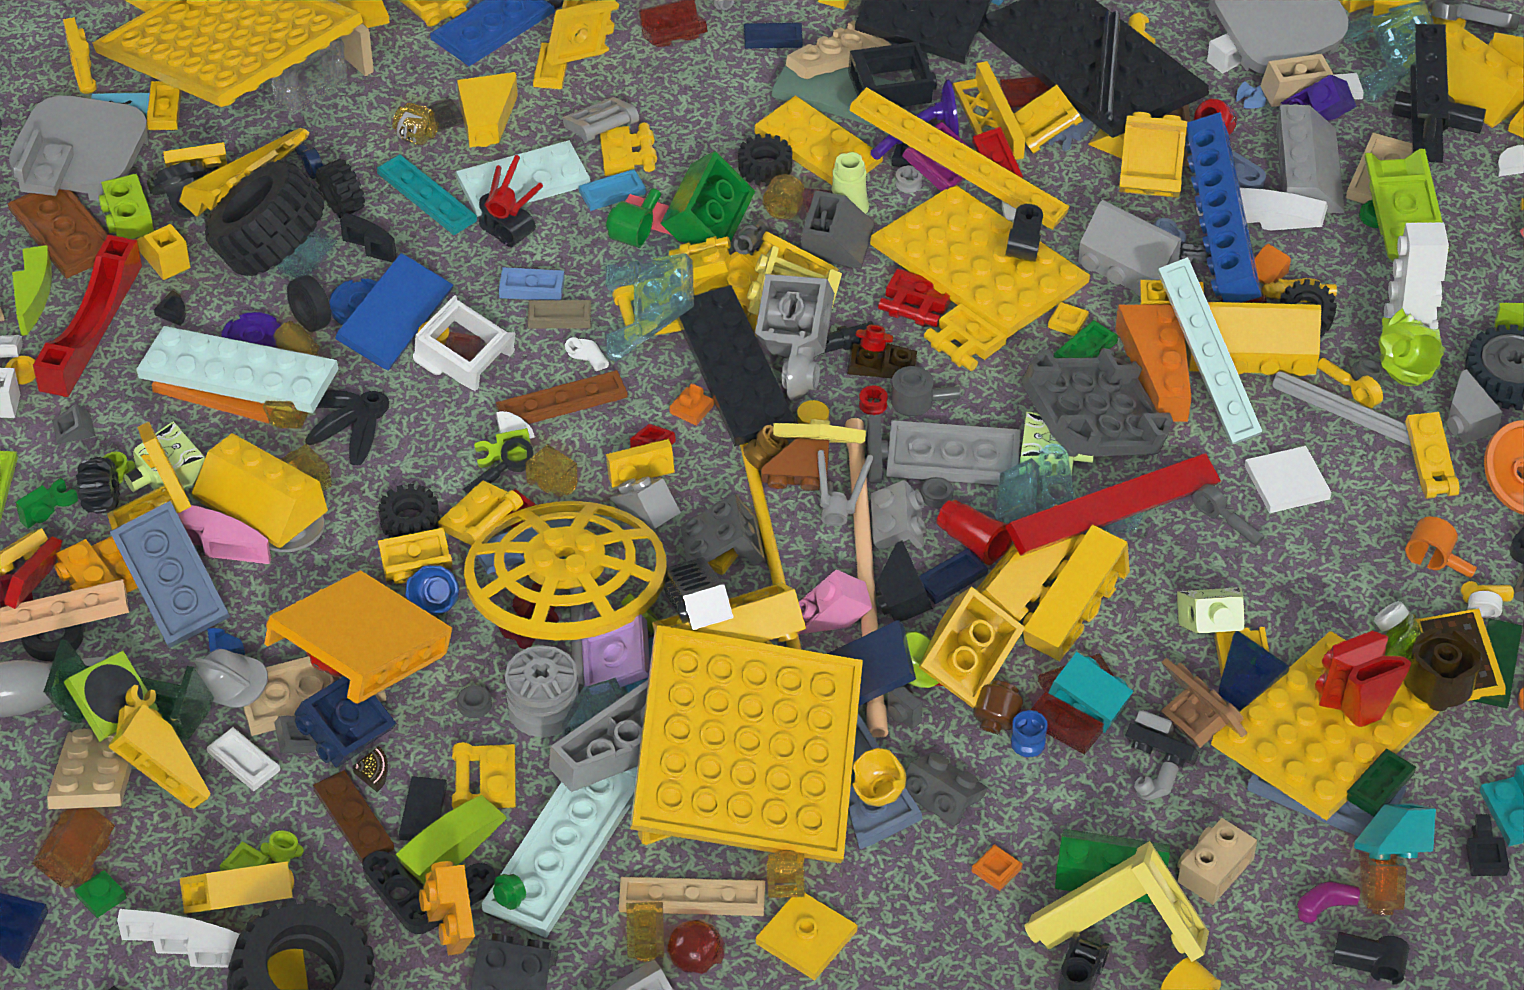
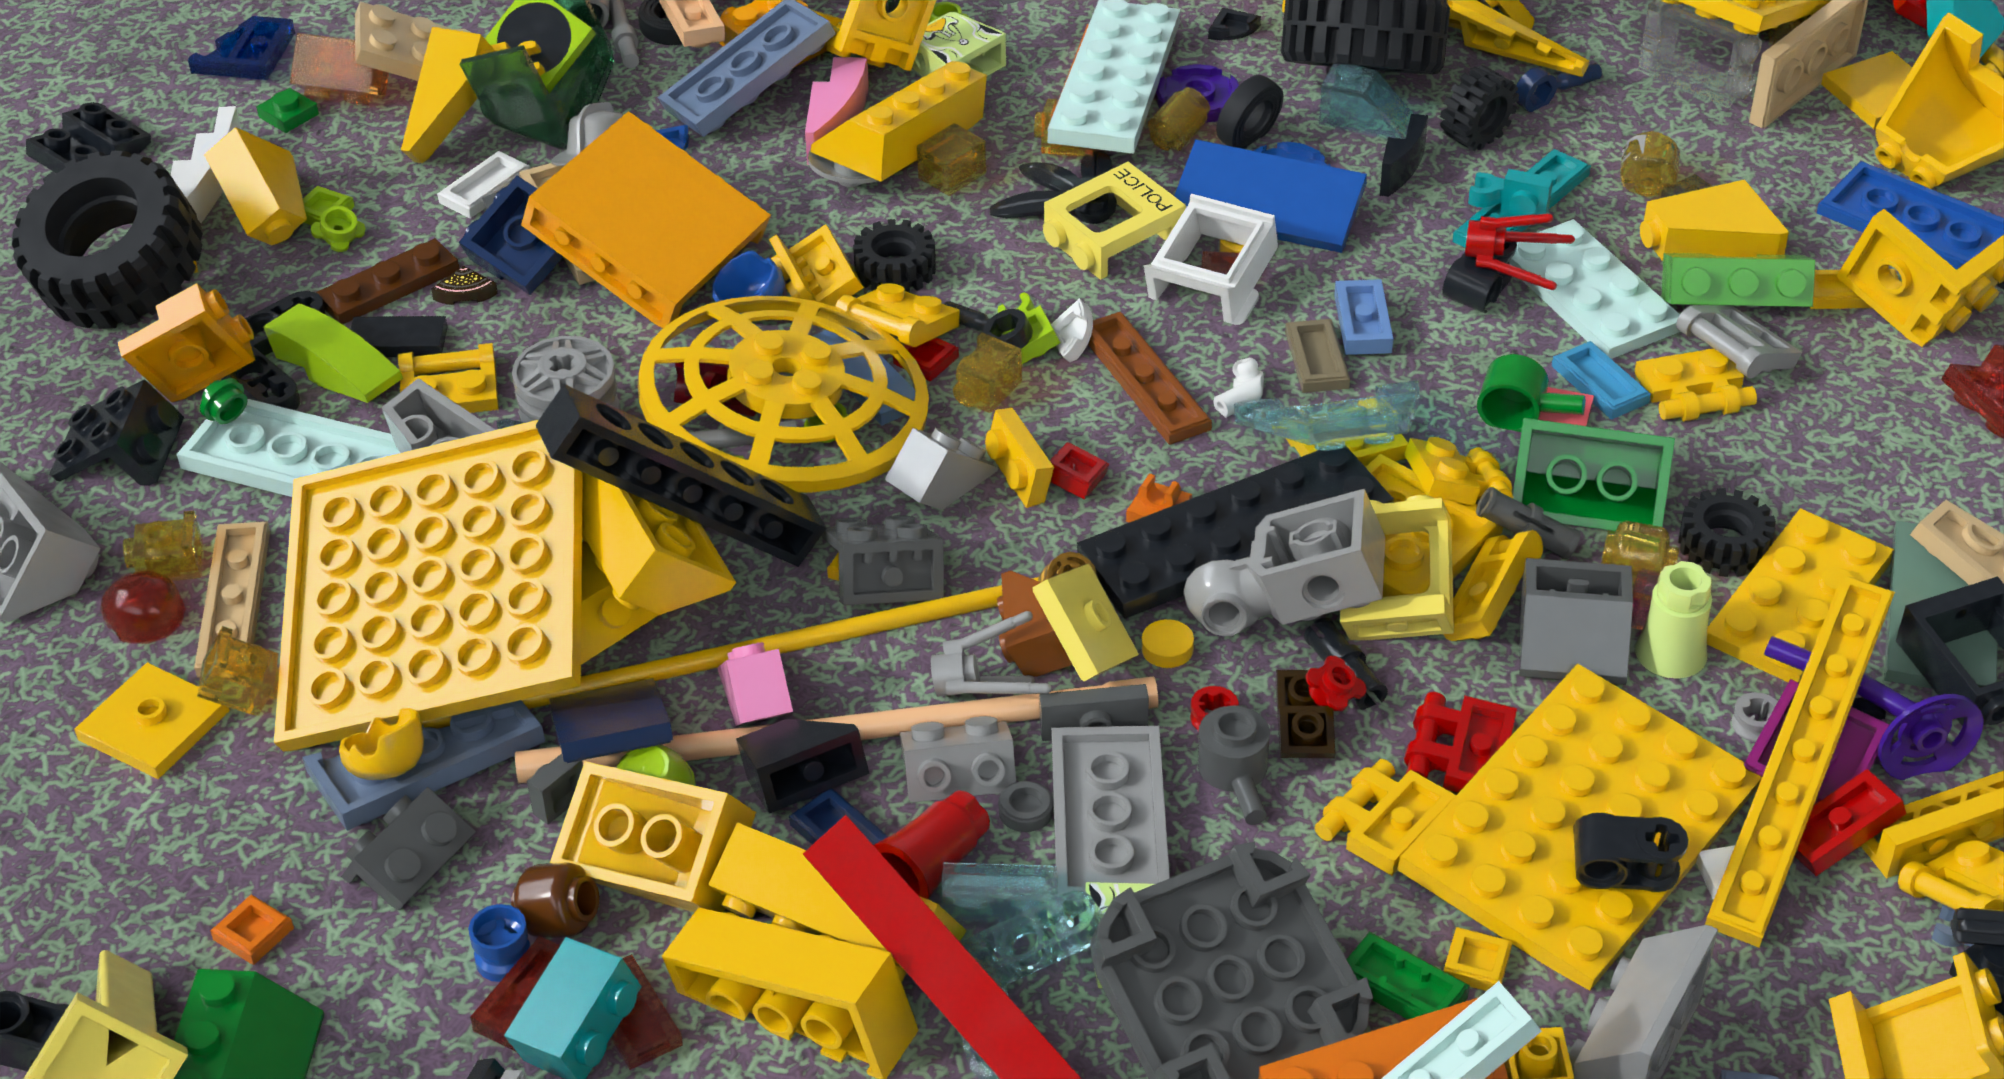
camera: 85 degrees right, 5 degrees down
(394, 369) = (1150, 205): none -> light yellow window
(443, 184) = (1518, 193): none -> teal plate
(554, 92) = (1738, 280): none -> bright green arch

